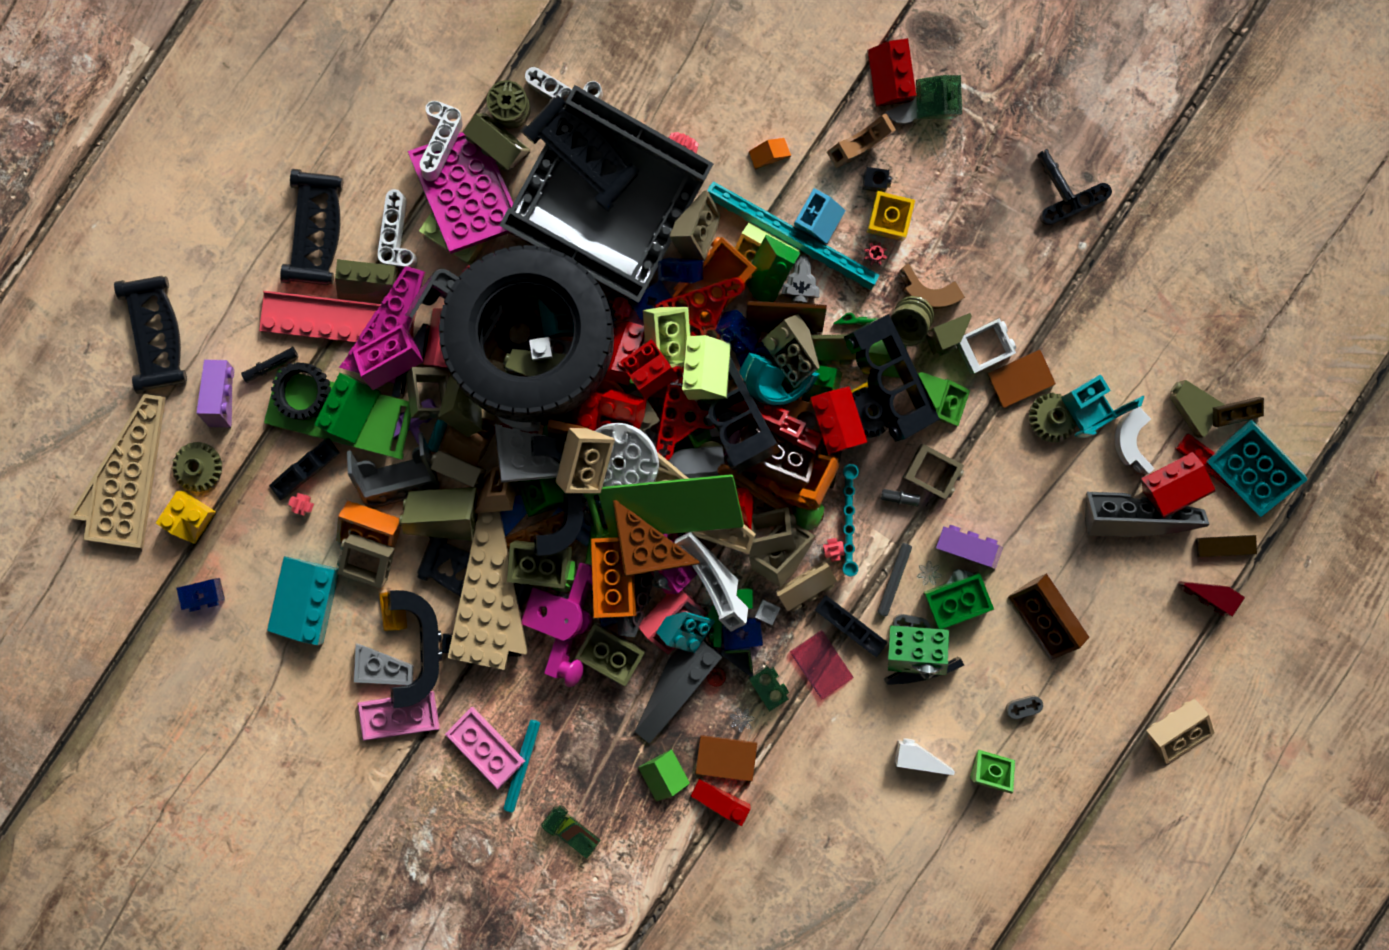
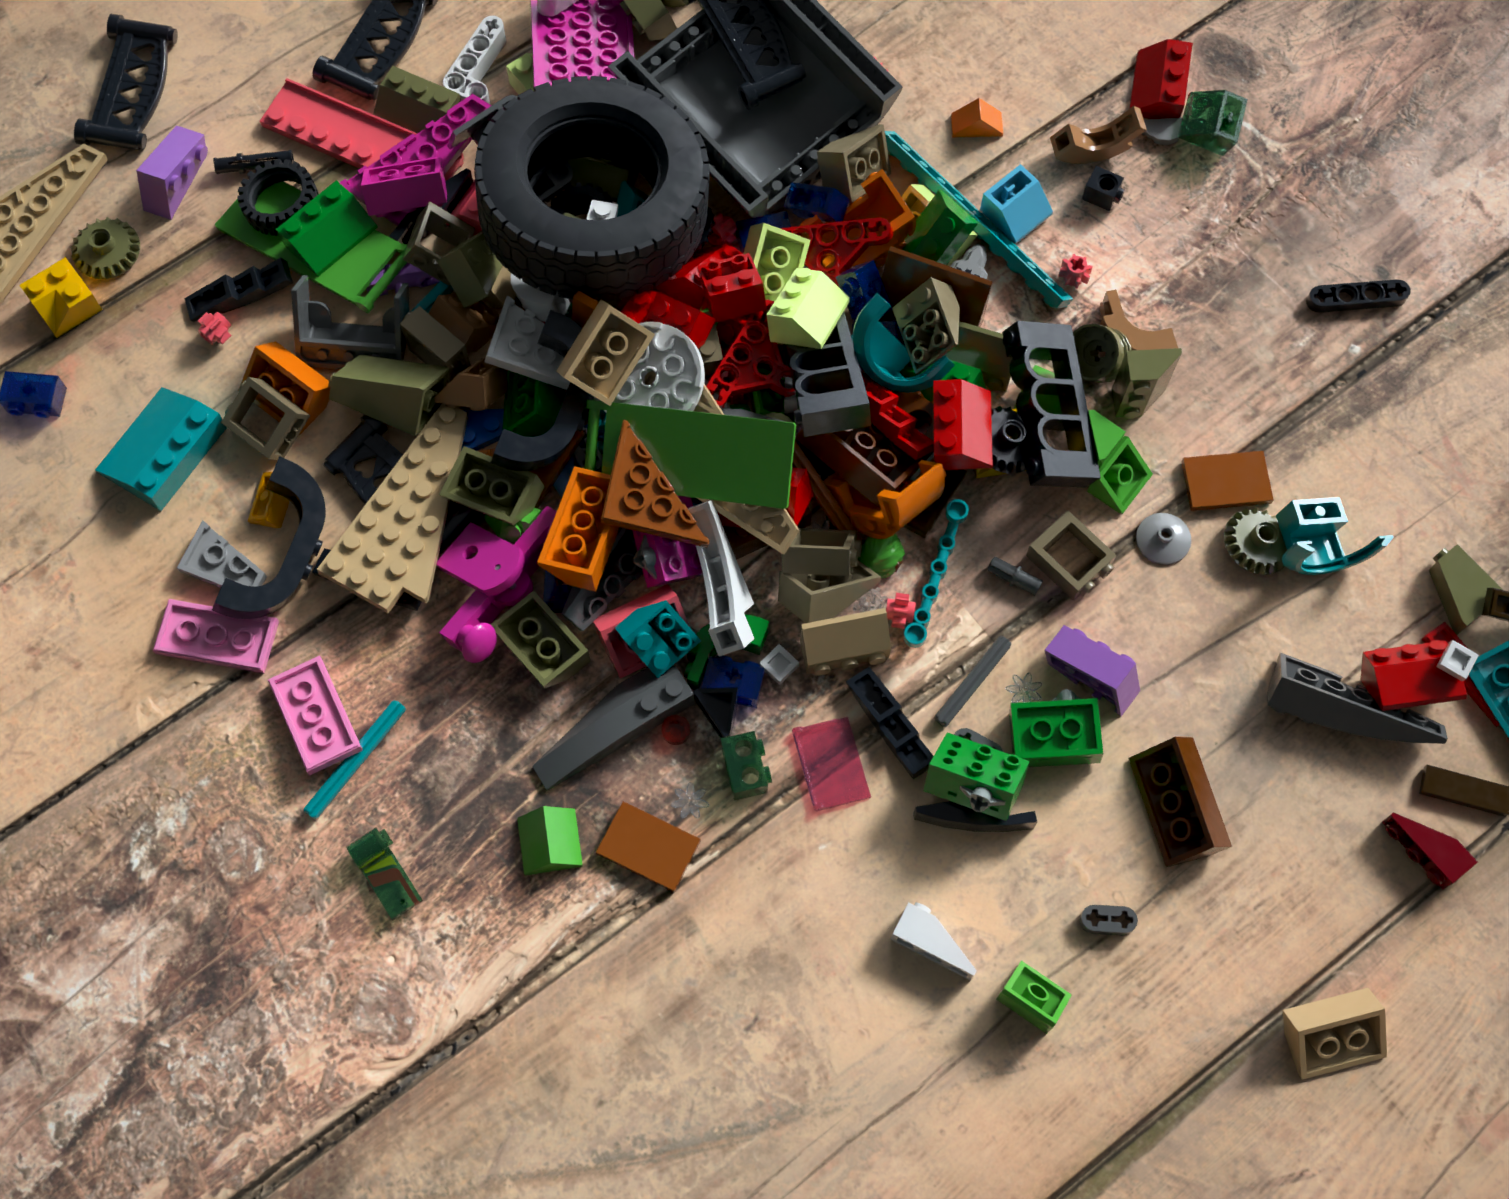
camera: 20 degrees right, 20 degrees down
(721, 802) = (618, 905): red slope -> none
(890, 216) = (1108, 231): yellow slope -> none
(968, 355) = (1163, 428): white window -> none
(980, 436) = (1161, 549): none -> light grey dish
(1056, 176) = (1337, 246): black pin -> none
(1126, 440) = (1353, 603): white arch -> none
(1205, 472) = (1457, 660): none -> white plate

